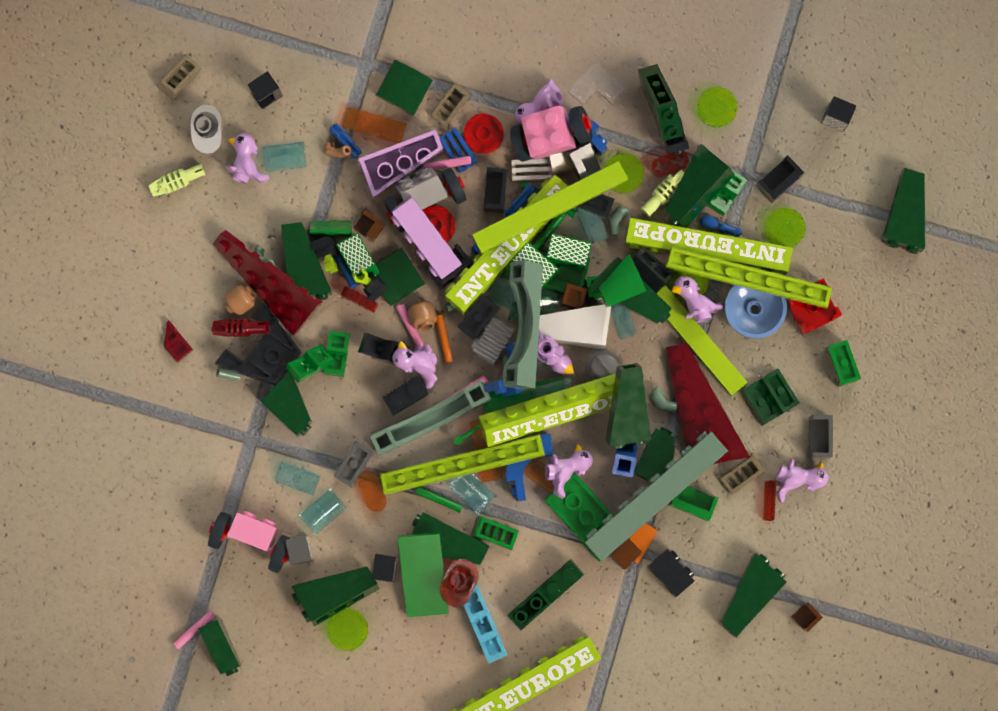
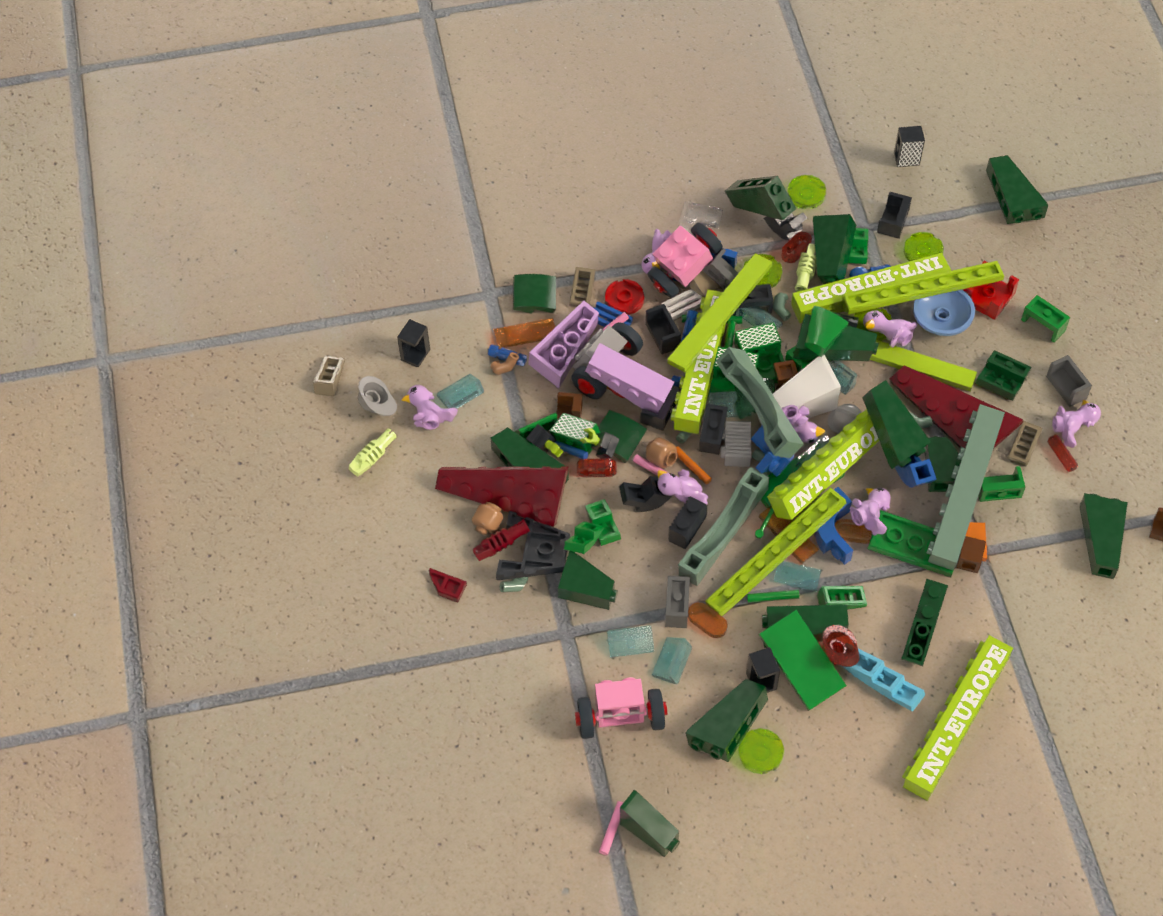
camera: 25 degrees left, 25 degrees down
(299, 550) = (676, 694): dark grey panel -> none
(671, 572) = (1022, 550): black brick -> none

